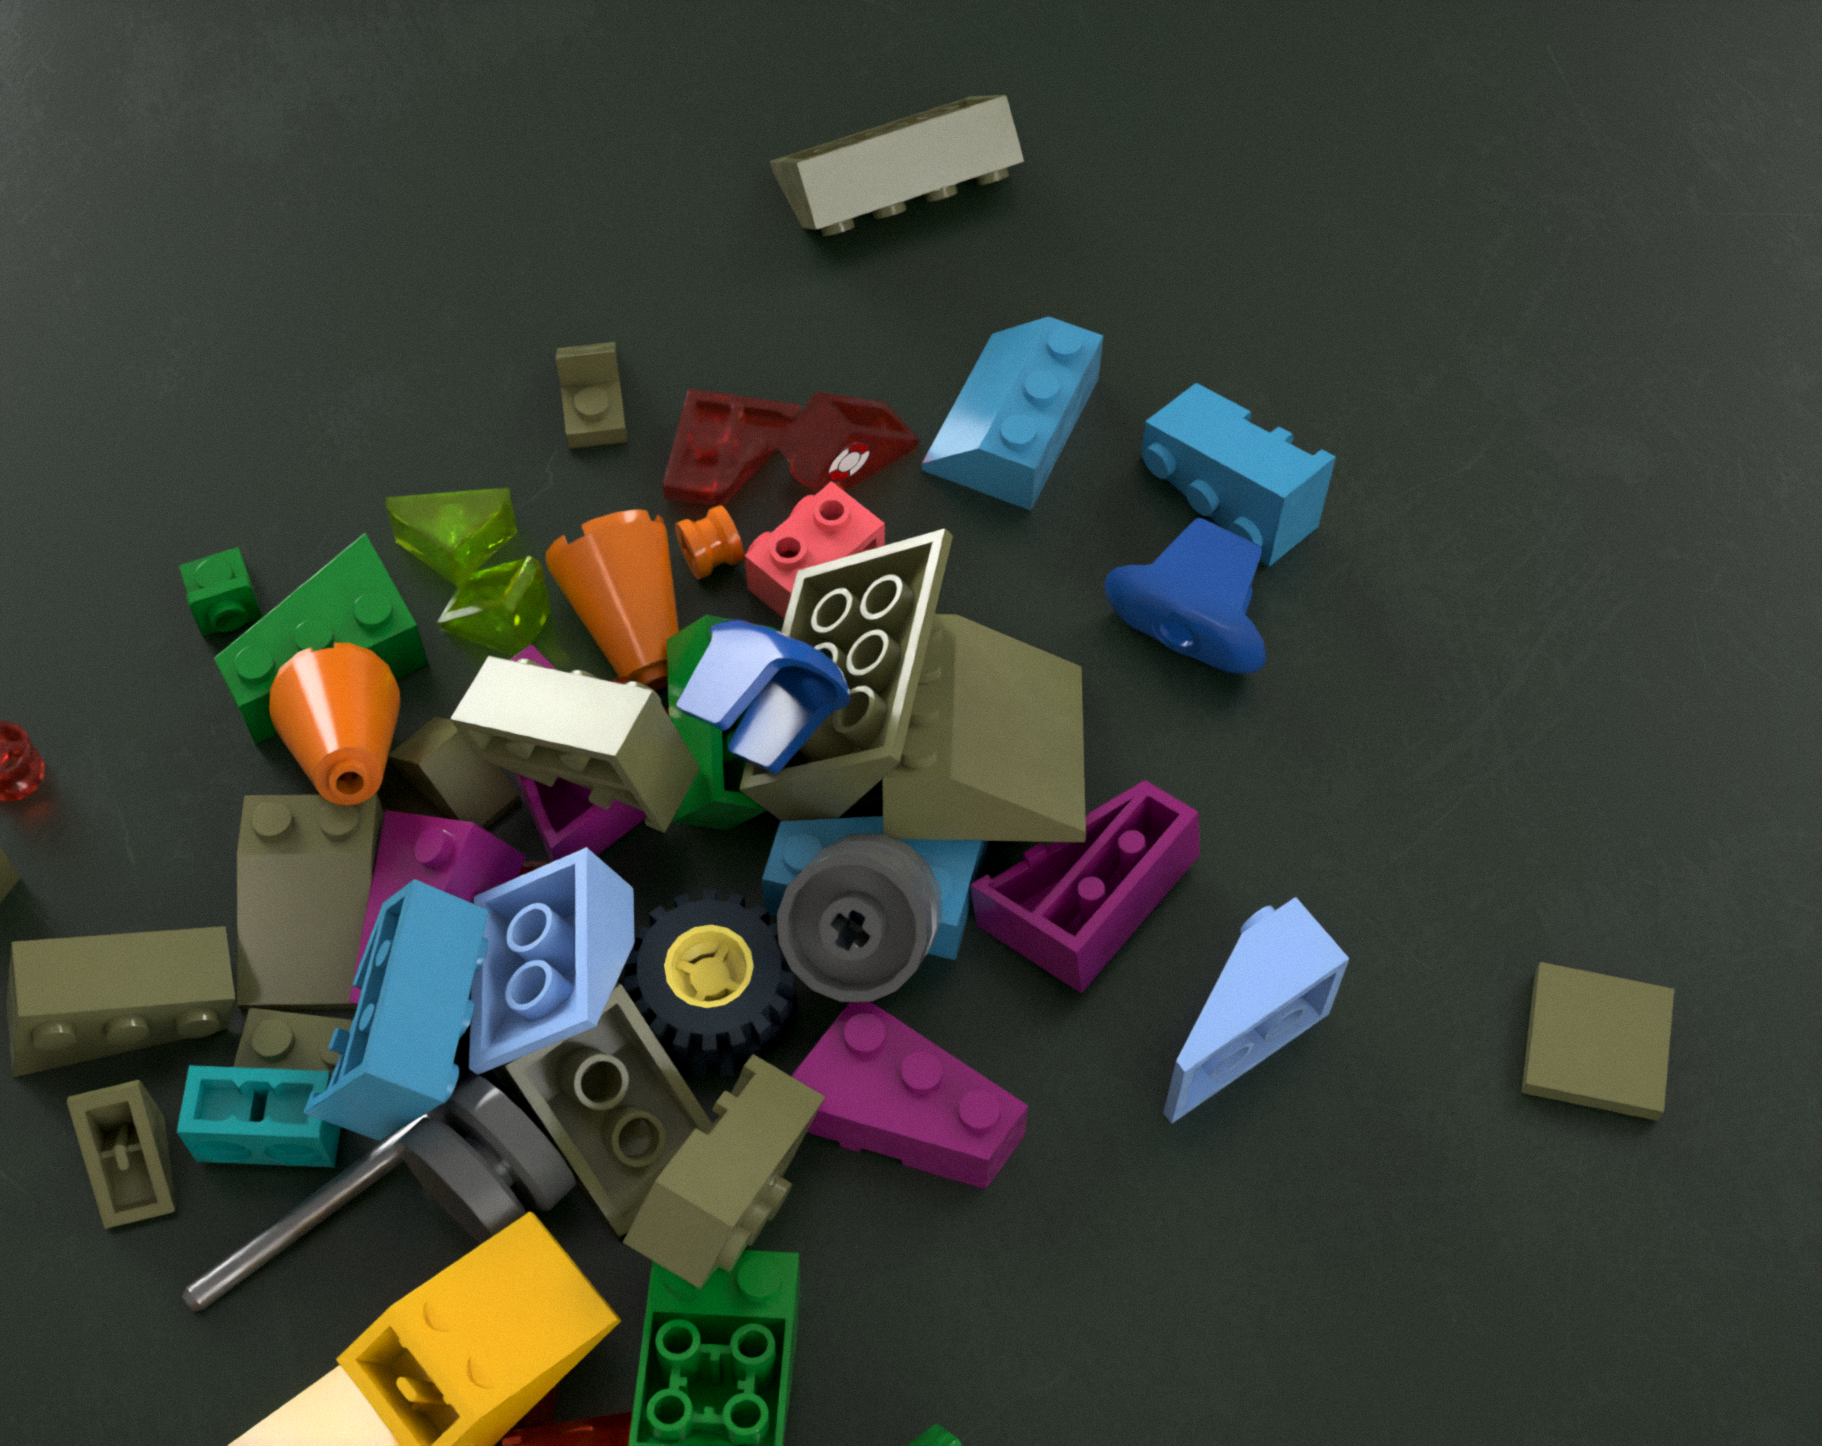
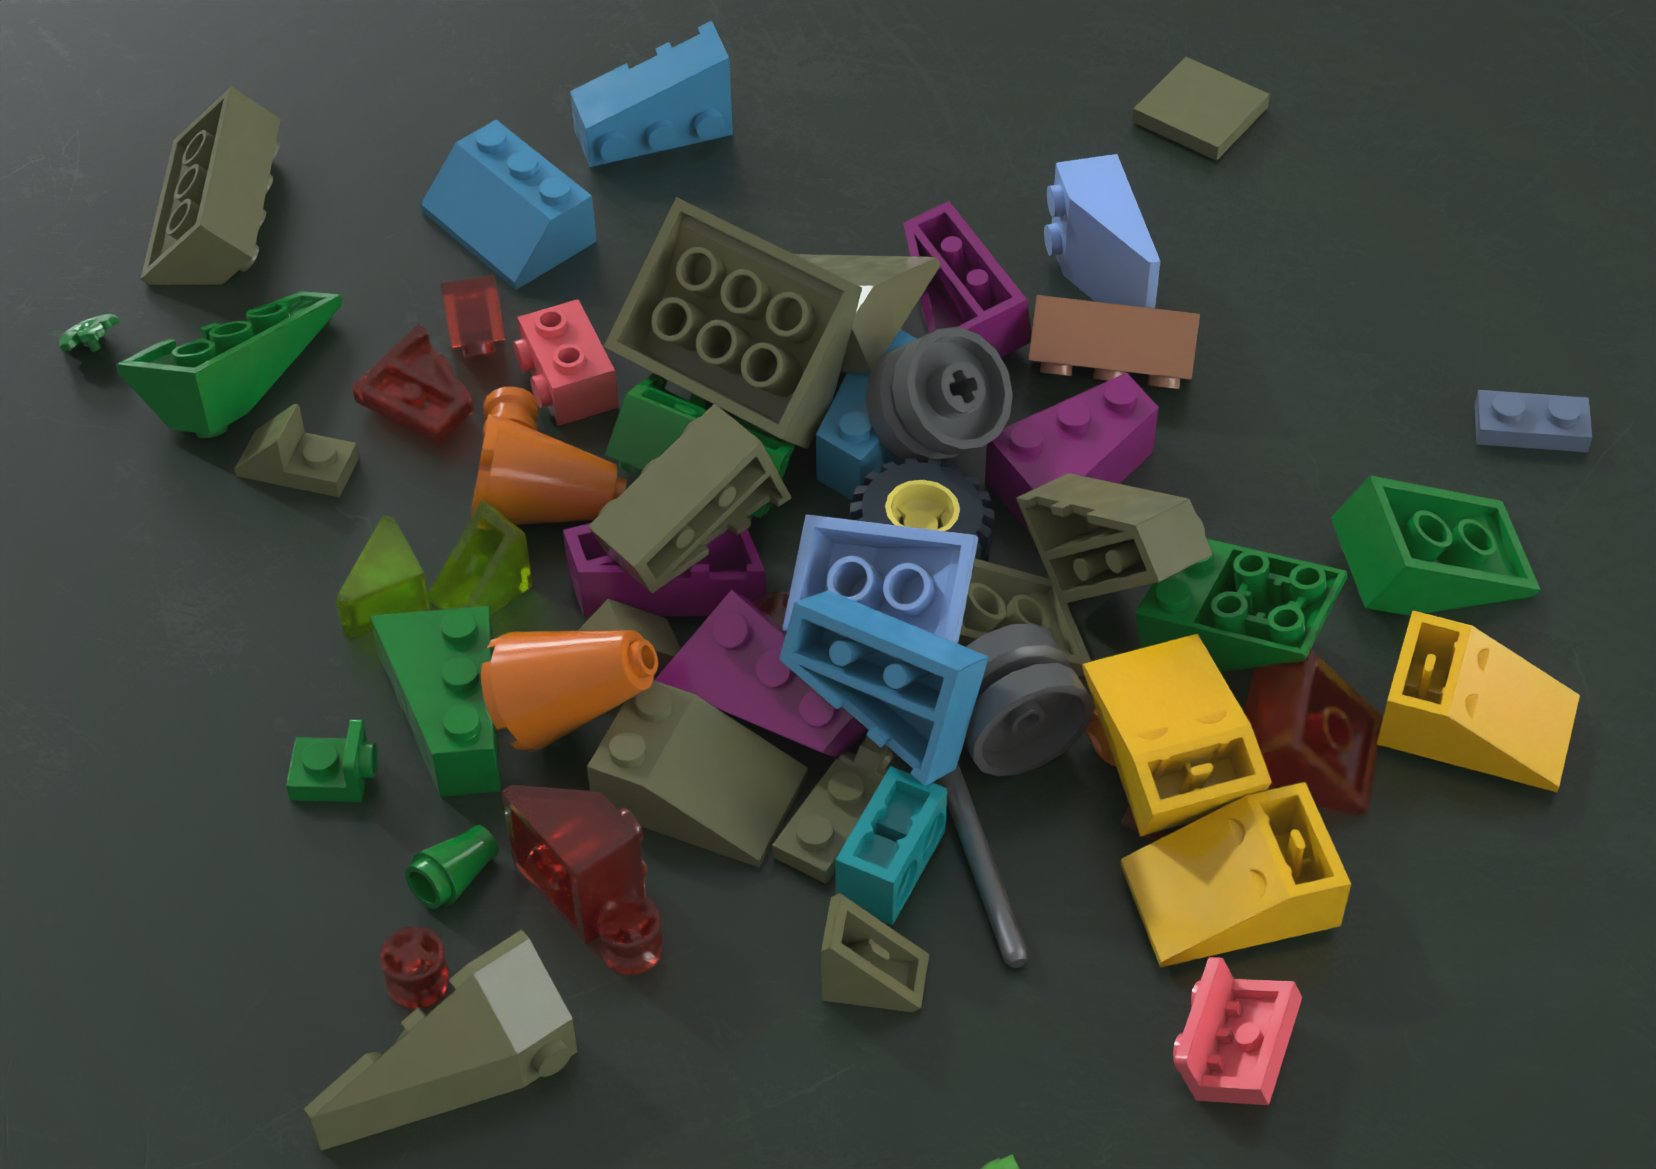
camera: 65 degrees left, 10 degrees down
(95, 908) = (632, 917): none -> clear red wheel
(114, 994) = (716, 933): olive wedge -> none
(127, 738) = (448, 868): none -> green cone
(137, 836) = (574, 850): none -> clear red slope
(660, 276) = (232, 365): none -> green wedge
(669, 153) = (87, 332): none -> green plant
(782, 678) = (731, 362): piece -> none
(1106, 1077) = (1113, 340): none -> nougat brick
(1195, 598) = (758, 158): blue piece -> none

